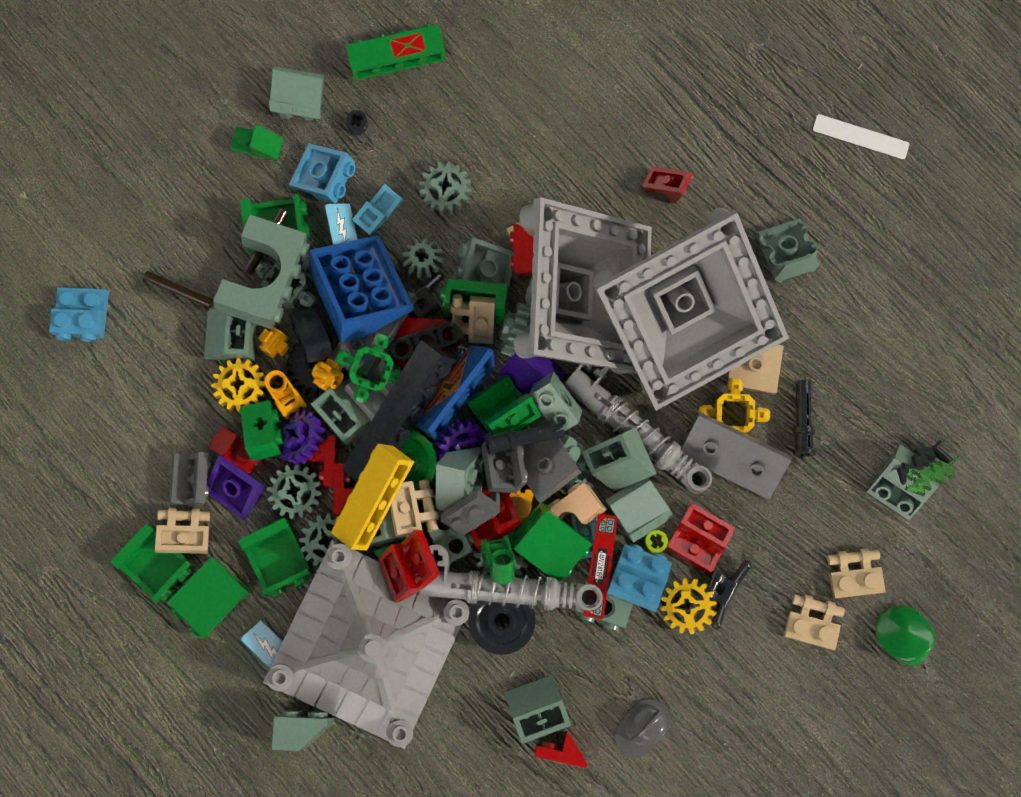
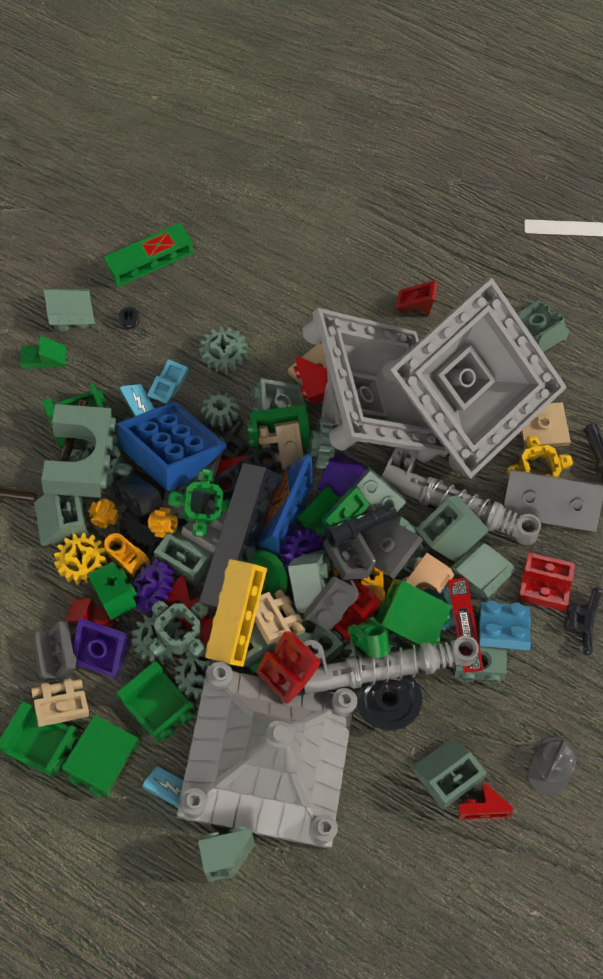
camera: 15 degrees left, 15 degrees down
(301, 470) = (190, 641): none -> sand green piece
(323, 173) = (110, 363): dark azure plate -> none
(664, 540) = (514, 592): lime bush -> none
(689, 618) = (565, 635): yellow gear -> none

